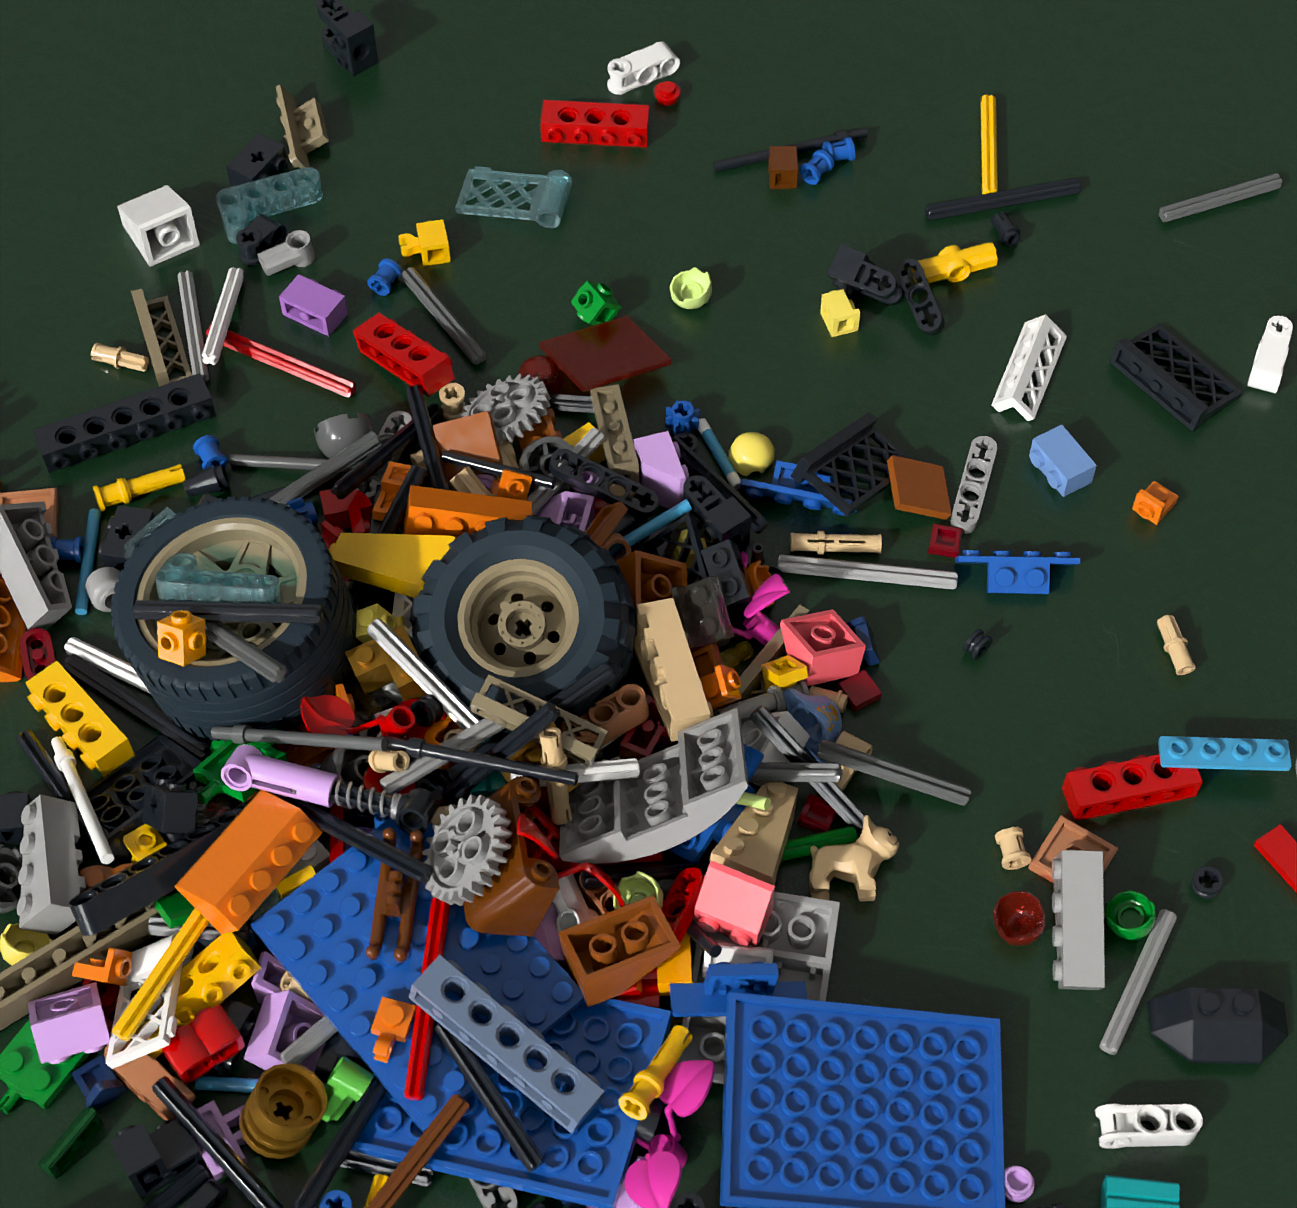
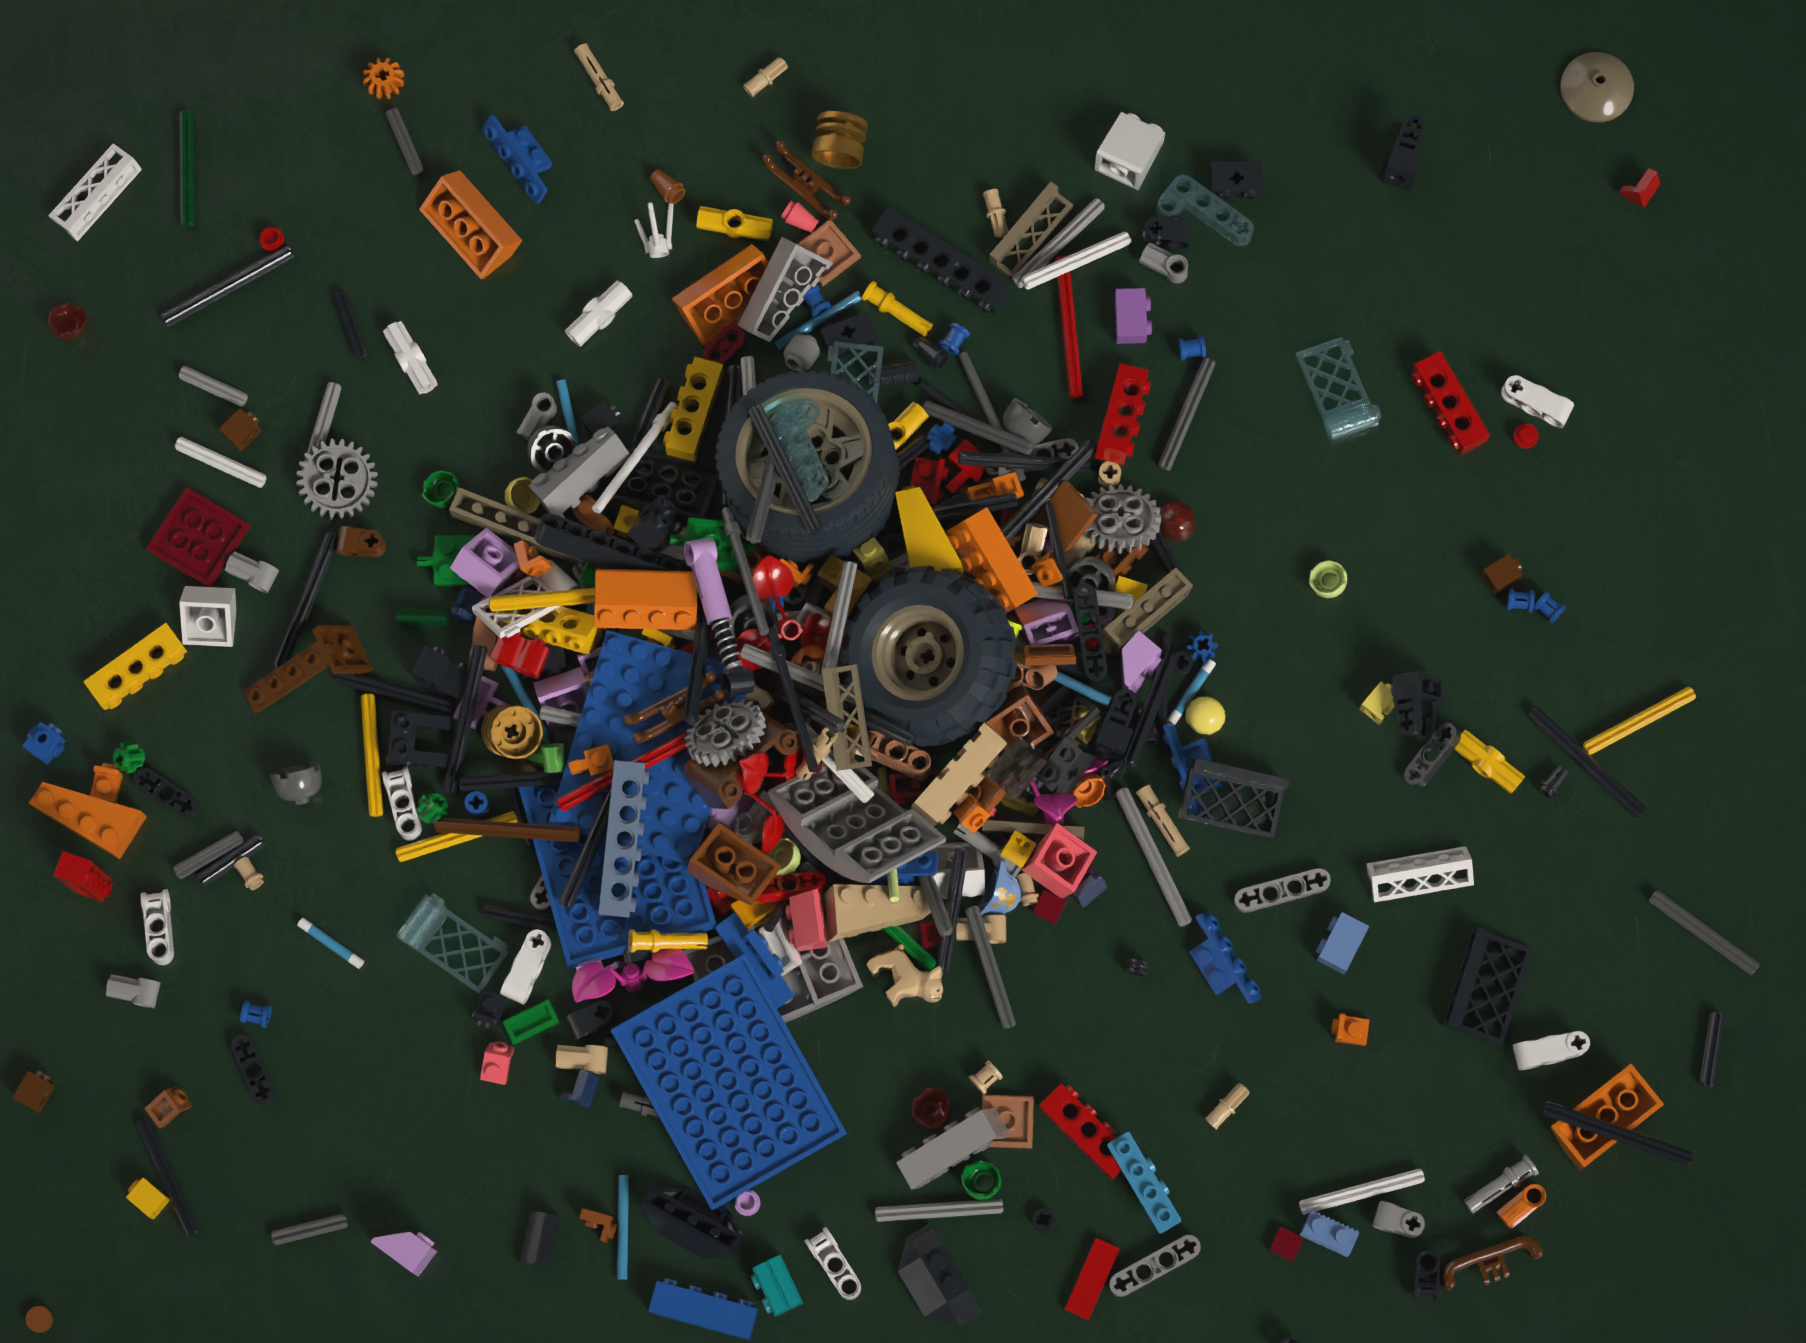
camera: 60 degrees right, 20 degrees up
(181, 638) = (749, 454): light orange brick -> none
(303, 127) = (1296, 184): dark tan bracket -> none
(388, 760) = (760, 642): tan pin -> none
(431, 243) = (1245, 359): yellow brick -> none
(433, 706) = (818, 637): black bush -> none
(595, 303) = (1265, 519): green brick -> none
(605, 353) = (1222, 555): clear red piece -> none
(803, 146) = (1566, 599): black bar -> none
(919, 487) = (1248, 853): dark orange tile -> none
(945, 540) = (1218, 897): dark red tile -> none

